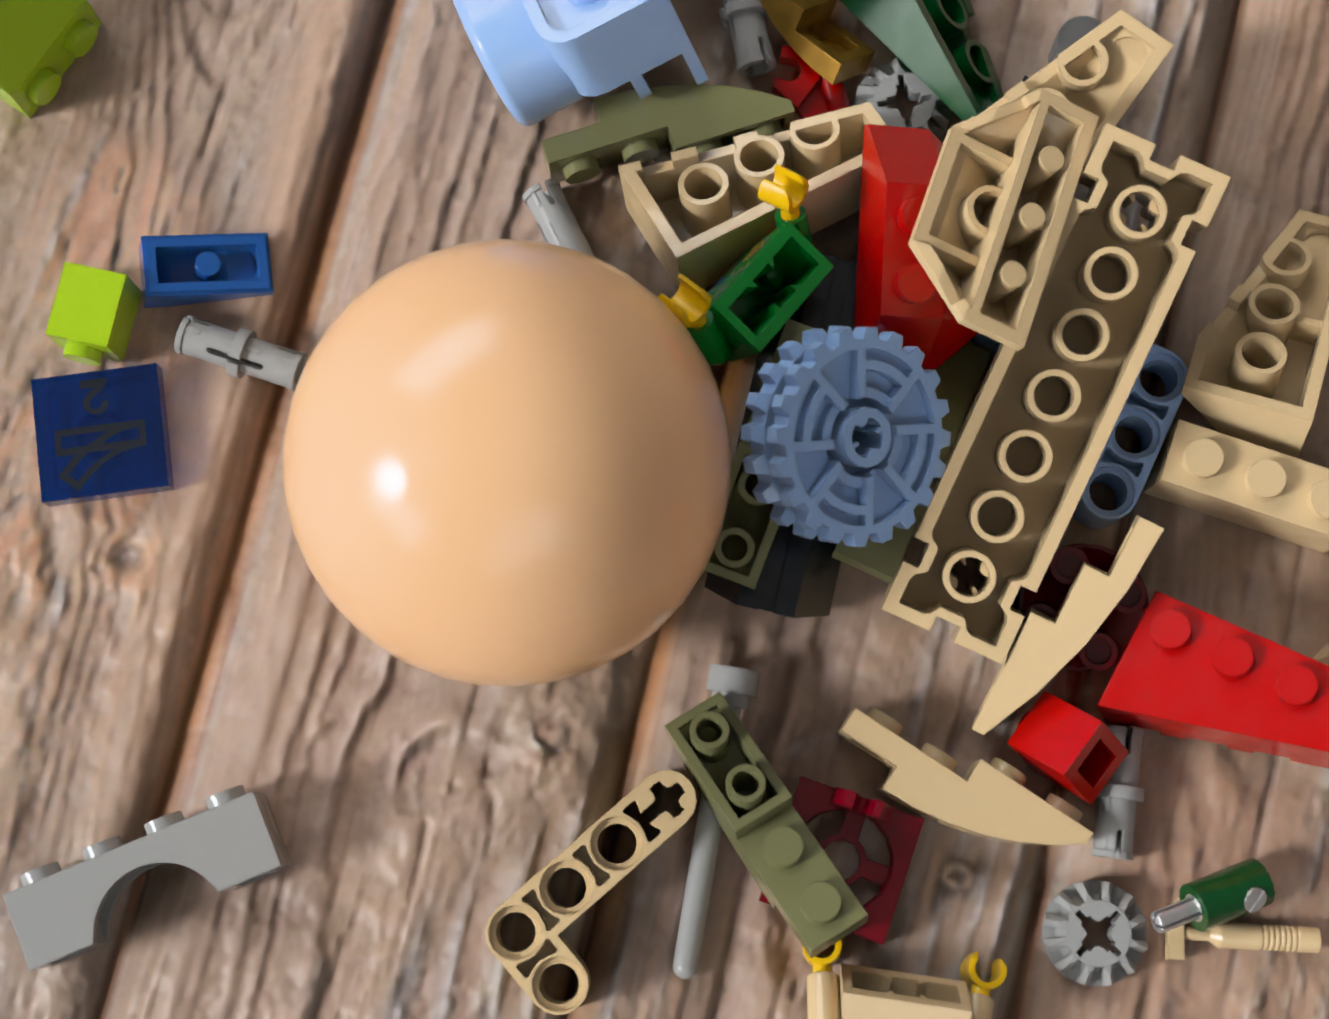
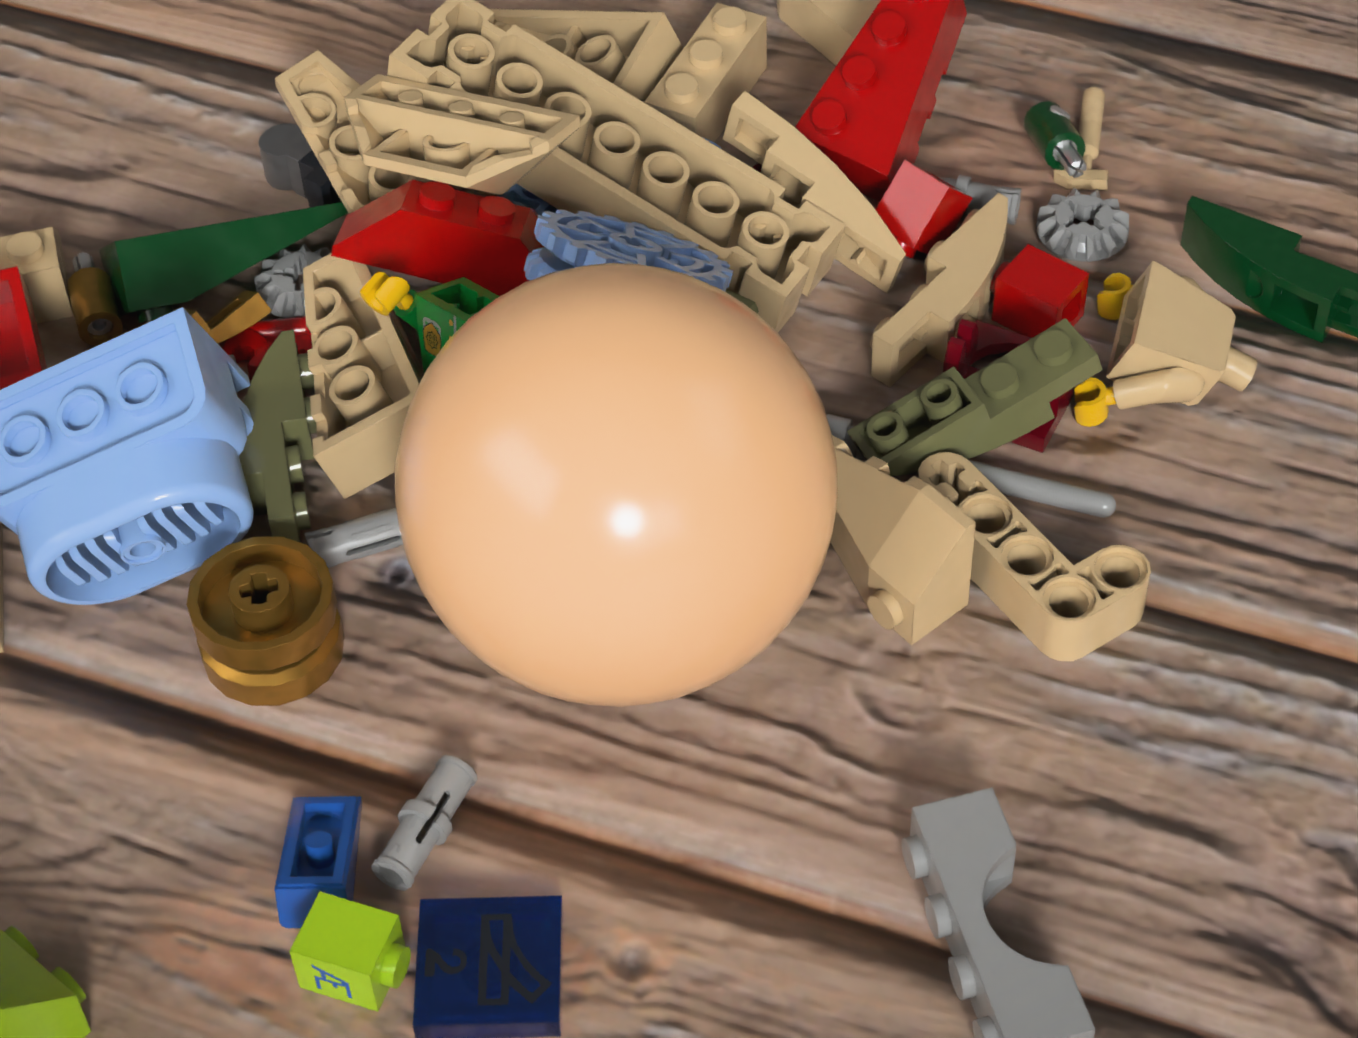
camera: 80 degrees left, 30 degrees down
(425, 130) = (266, 620): none -> pearl gold wheel
(576, 750) = (901, 545): none -> tan wedge
(964, 884) = (1037, 292): none -> red brick

